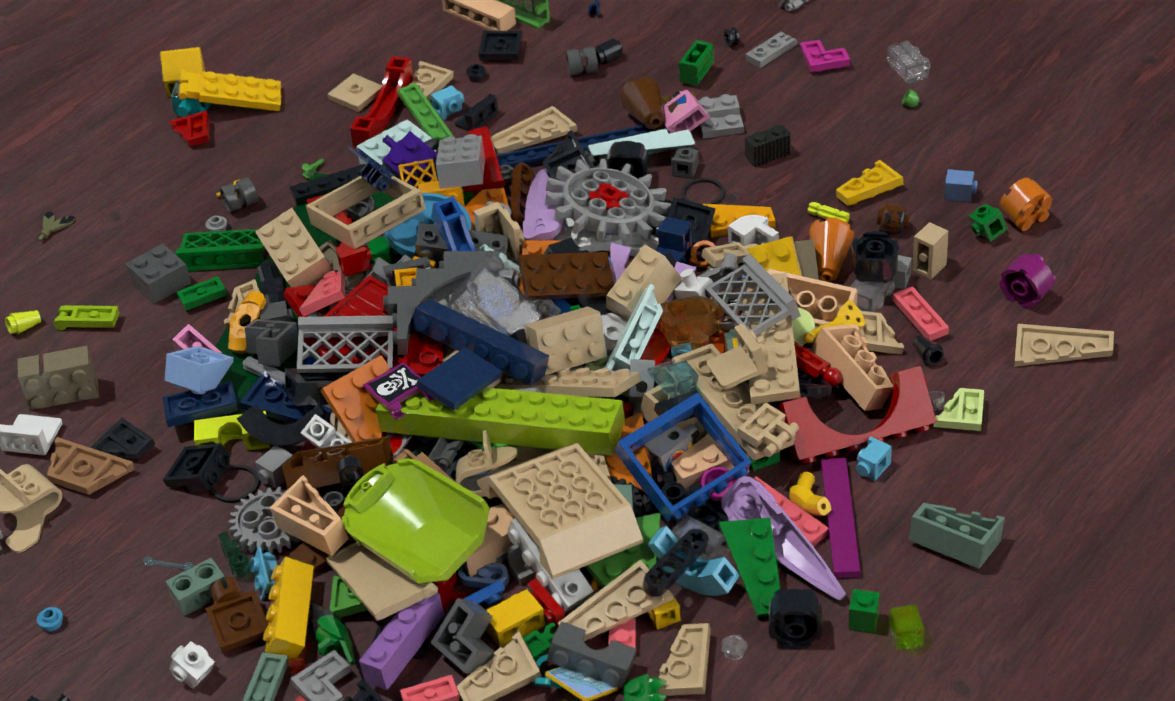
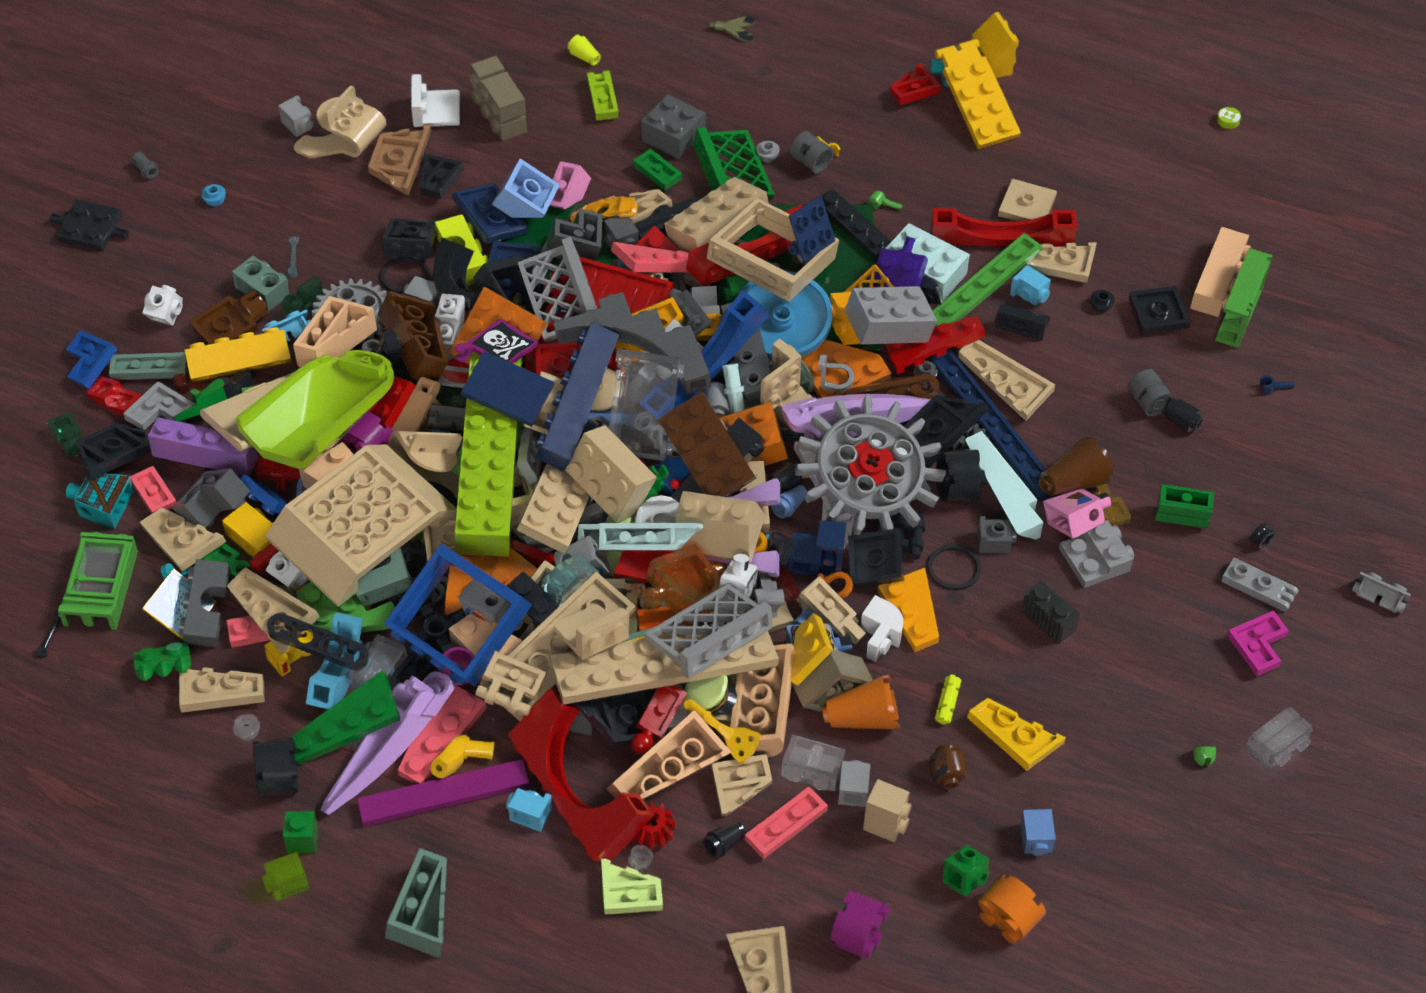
camera: 70 degrees right, 10 degrees up
(875, 257) = (835, 746): black brick -> none

